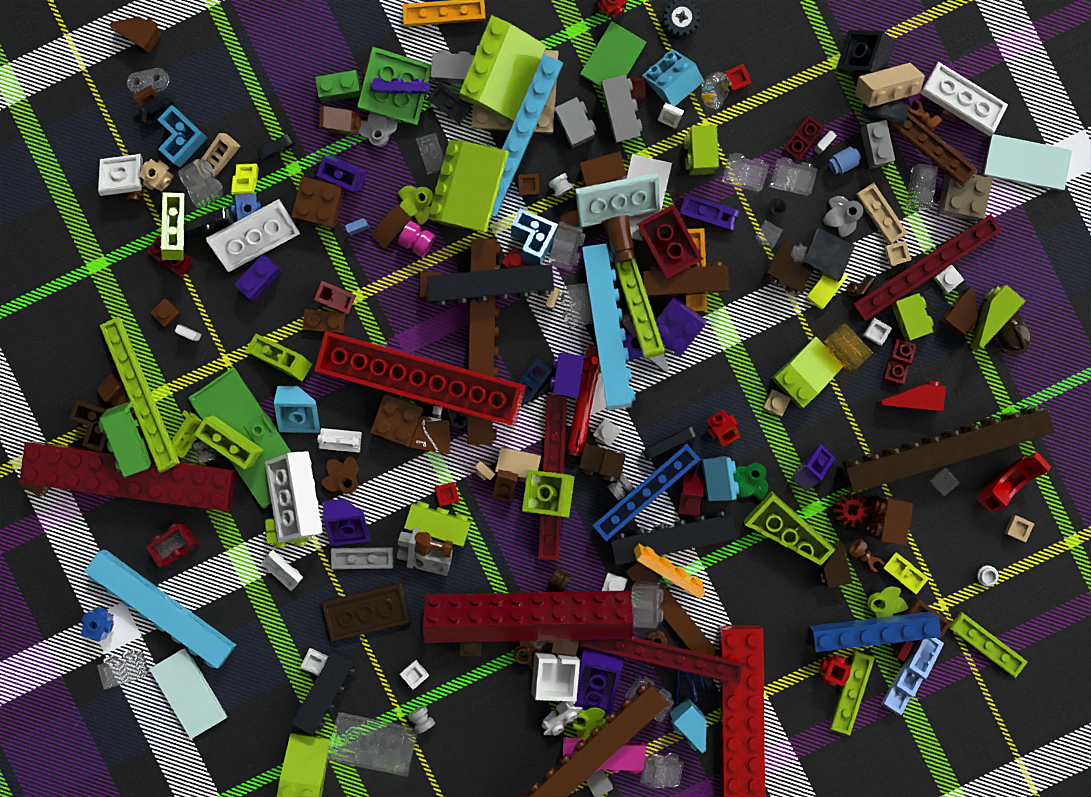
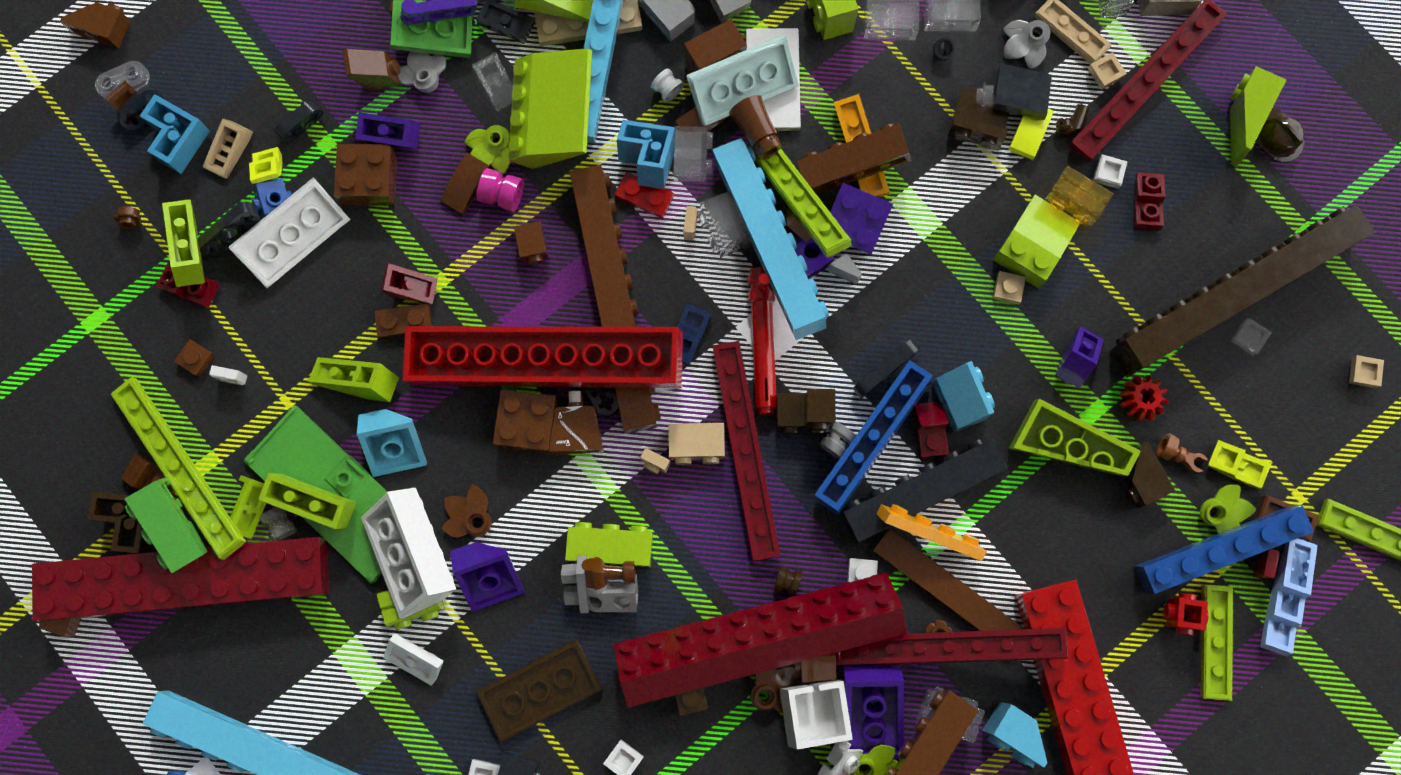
camera: 10 degrees left, 10 degrees down
(120, 174) = (105, 198): white tile -> none
(155, 175) = (150, 187): tan brick -> none
(172, 545) = (257, 660): dark red window -> none
(201, 183) = (210, 184): clear brick -> none
(258, 277) = (306, 284): dark purple brick -> none
(338, 86) = (363, 29): bright green brick -> none
(339, 440) = (455, 468): white hinge -> none
(357, 226) = (421, 192): medium blue tile -> none
(362, 558) = (517, 618): light grey tile -> none
(447, 494) = (612, 505): red tile -> none
(491, 283) = (607, 217): black brick -> none
(505, 486) = (686, 473): reddish brown plate -> none
(528, 184) = (627, 94): reddish brown plate -> none
(548, 493) = (745, 466): lime slope -> none
(567, 374) = (734, 310): dark purple brick -> none
(607, 432) = (801, 375): white plate -> none
(646, 604) = (912, 584): clear brick -> none
(669, 241) = (819, 114): dark red slope -> none
(692, 685) = (995, 665): clear blue plant -> none
(708, 212) = (860, 75): dark purple plate -> none
(723, 428) = (950, 332): red brick -> none
(750, 484) = (1005, 397): green plate -> none
(768, 234) = (941, 86): clear tile -> none
(889, 519) = (1199, 393): reddish brown brick -> none
(912, 317) = (1148, 141): lime brick -> none
(919, 397) = (1194, 236): red slope -> none
(948, 278) = (1179, 87): white plate -> none
(962, 313) = (1209, 123): reddish brown slope -> none
(987, 575) = (1345, 443): white plate -> none
(1010, 480) = (1331, 320): red arch -> none

